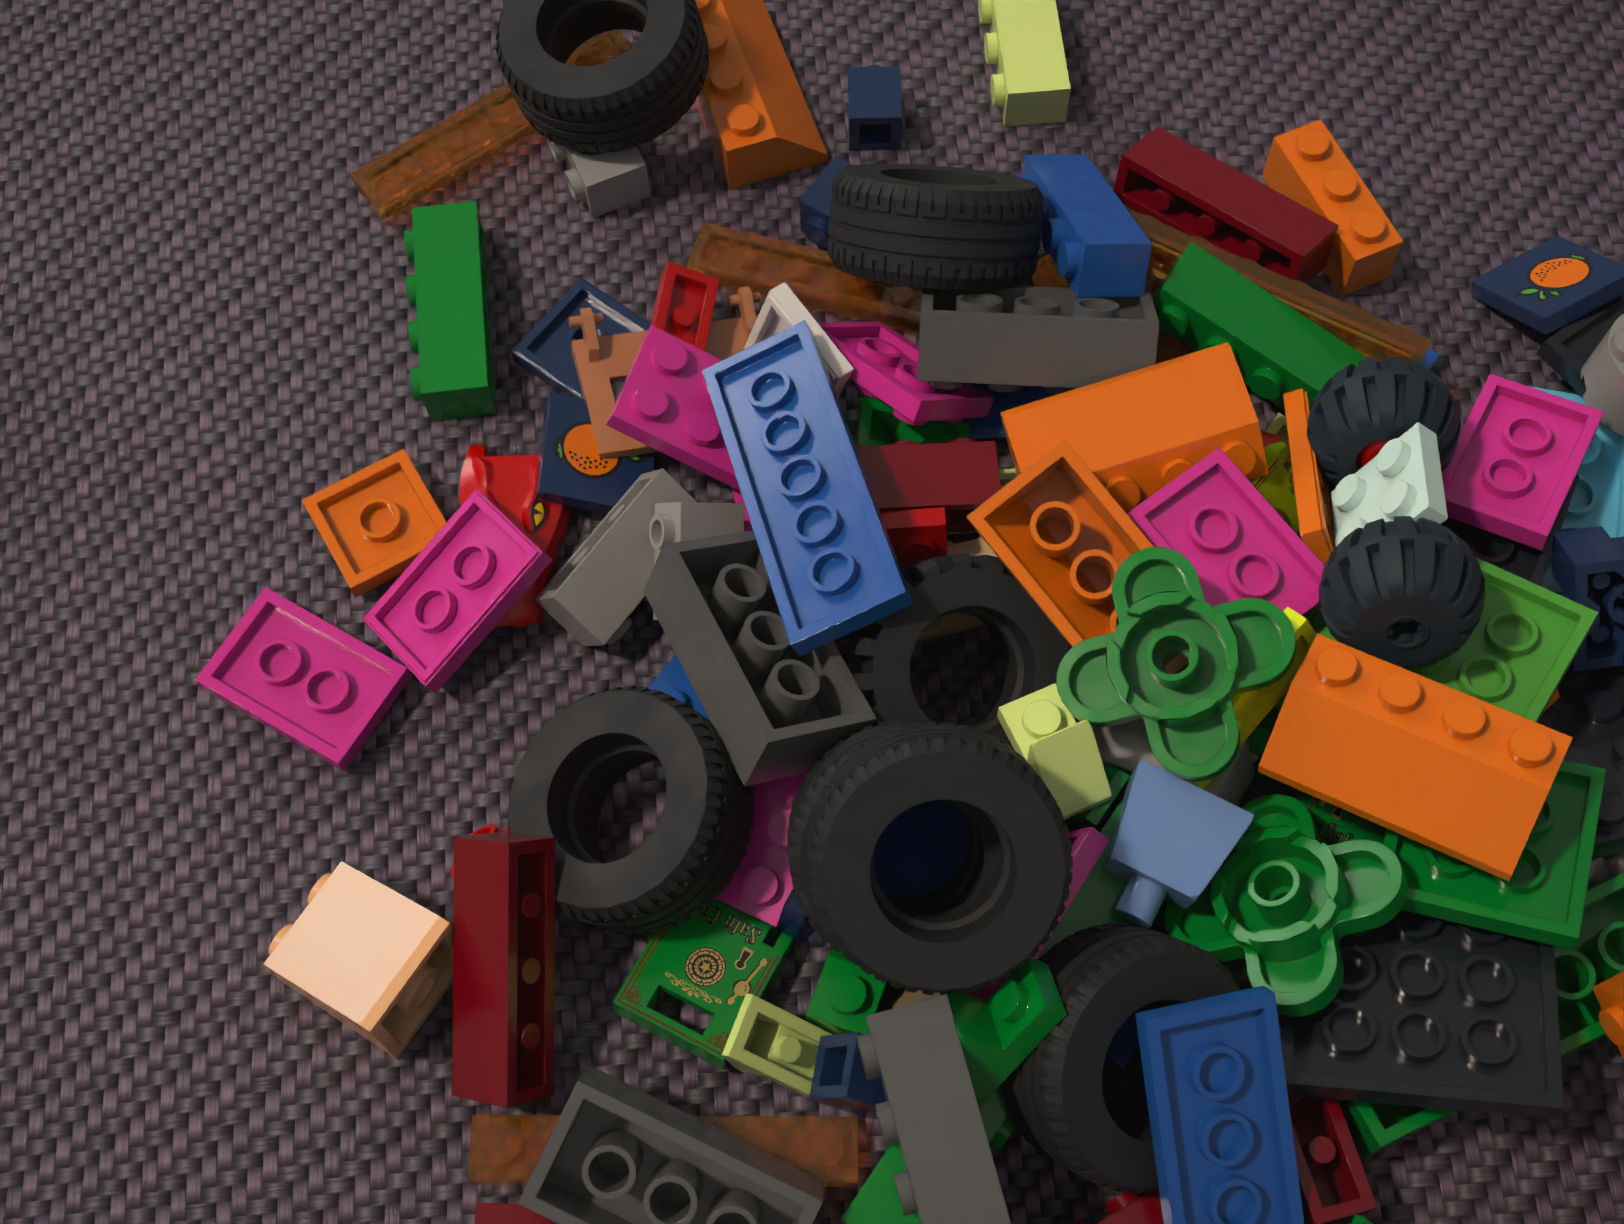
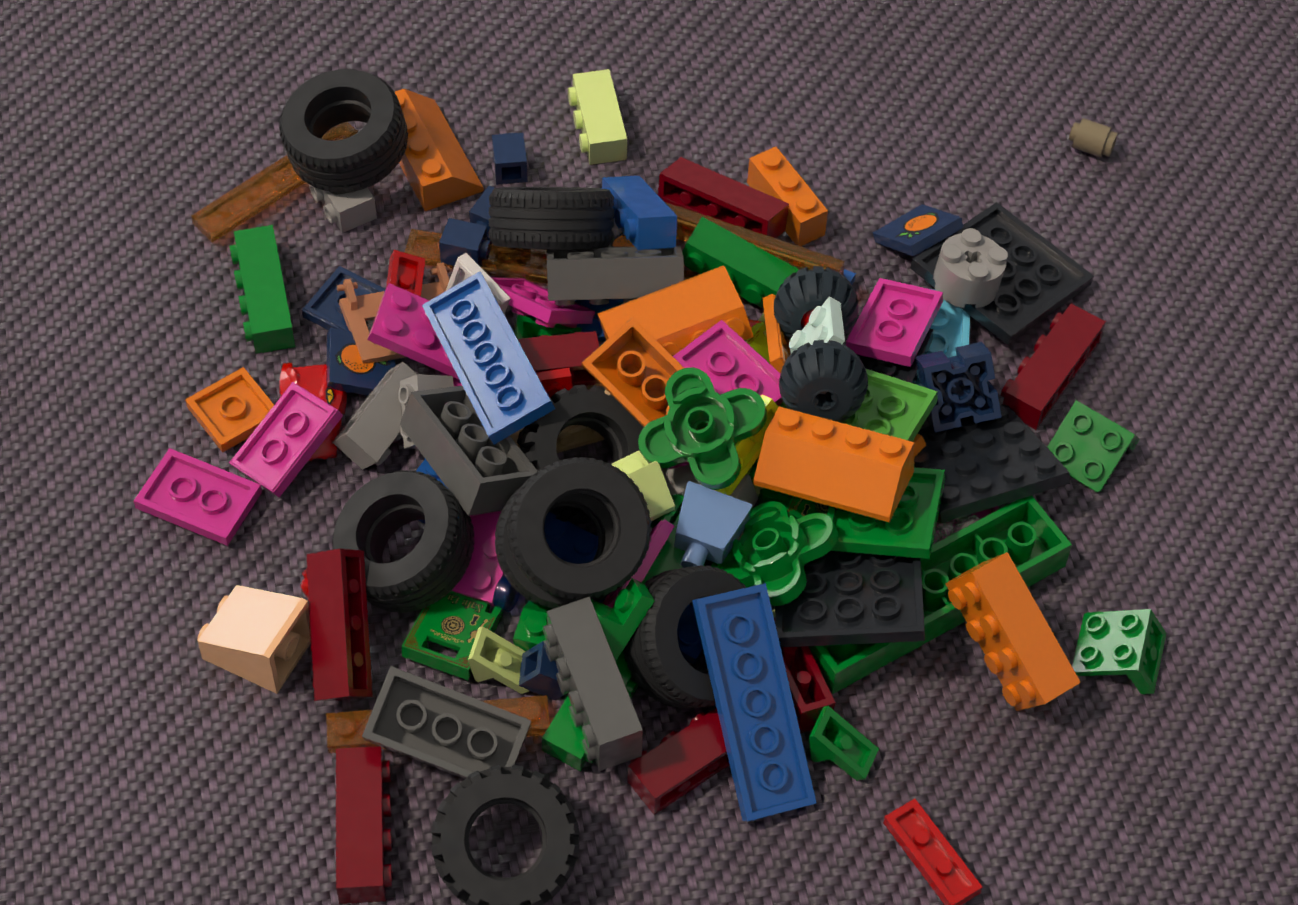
camera: 10 degrees left, 10 degrees down
(788, 254) = (462, 238): none -> dark blue brick

